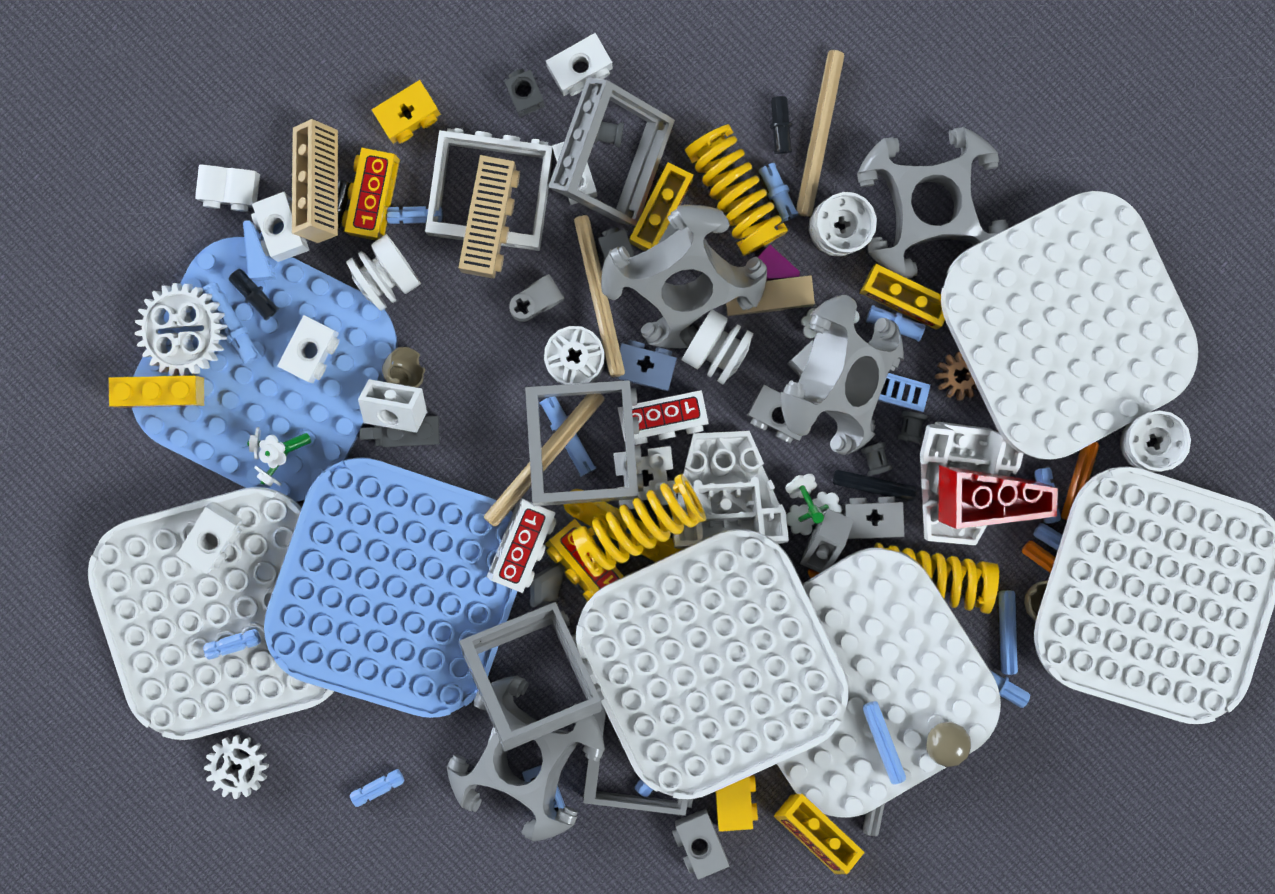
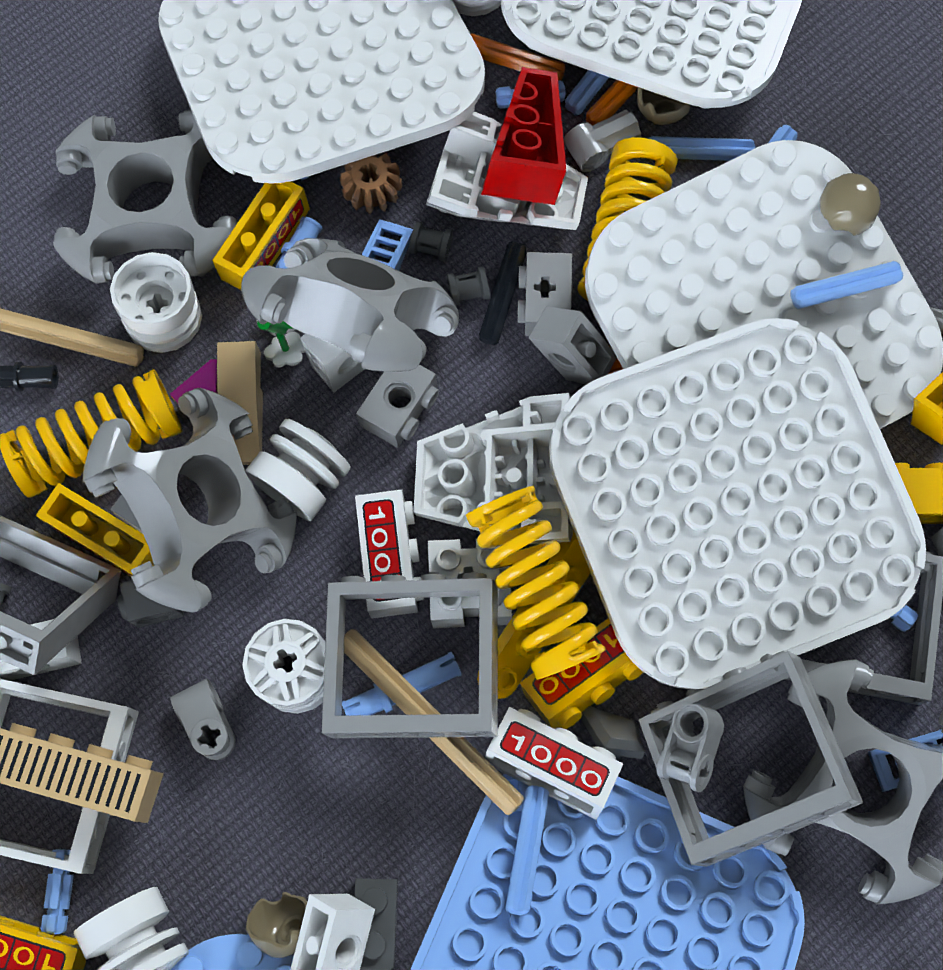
camera: 80 degrees left, 15 degrees down
(461, 531) = (527, 850): none -> light blue axle
(529, 638) = (691, 750): none -> light grey piece
(600, 301) = (208, 626): tan axle -> none
(655, 378) = (314, 549): sand blue brick -> none
(778, 192) = (104, 383): light blue pin -> none
(804, 516) = (525, 357): white plant -> none
(1005, 548) = (594, 143): none -> light grey piece

